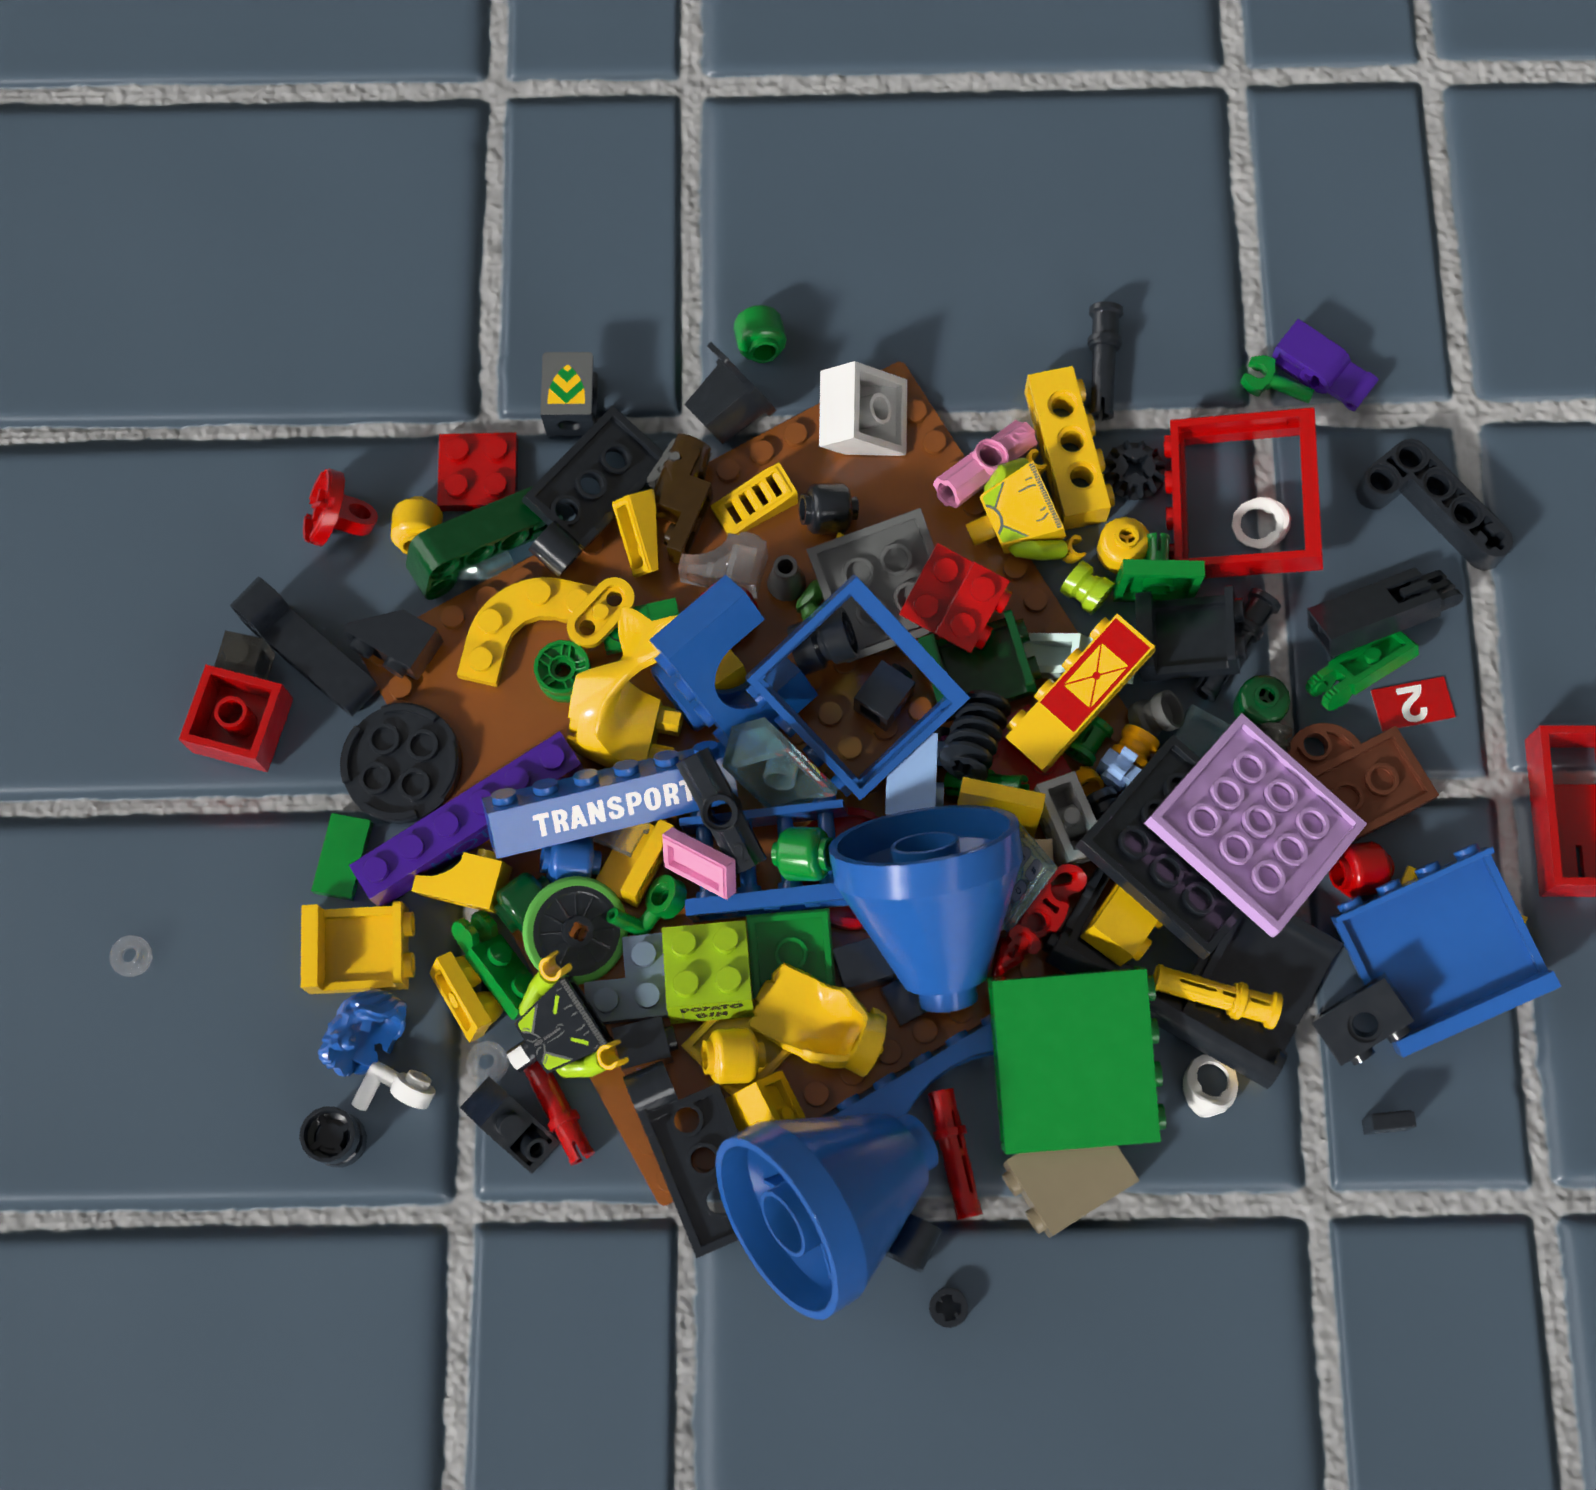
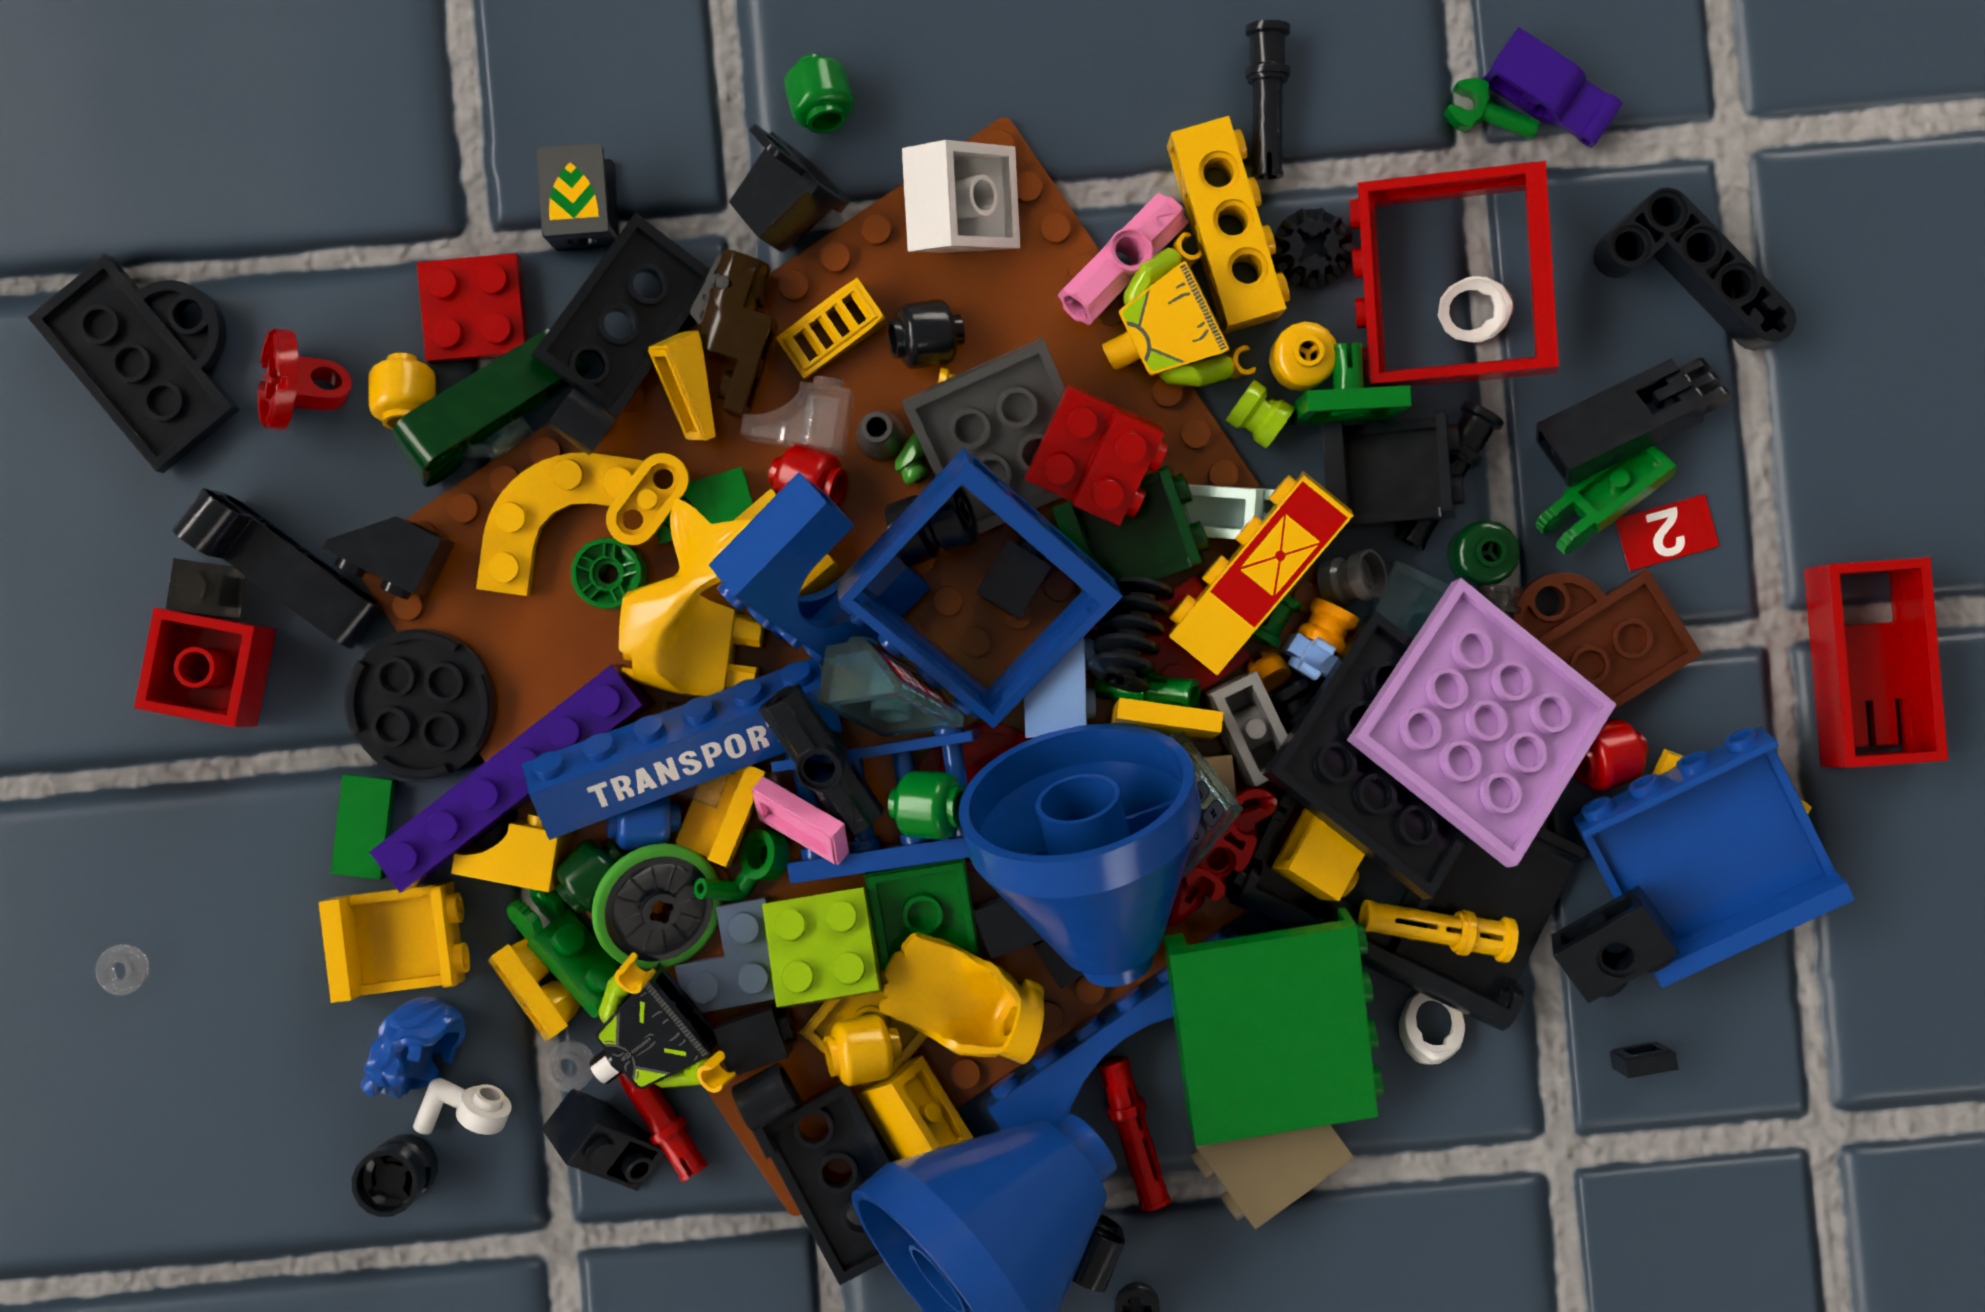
camera: 10 degrees left, 15 degrees up
(219, 489) = (141, 358): none -> black plate

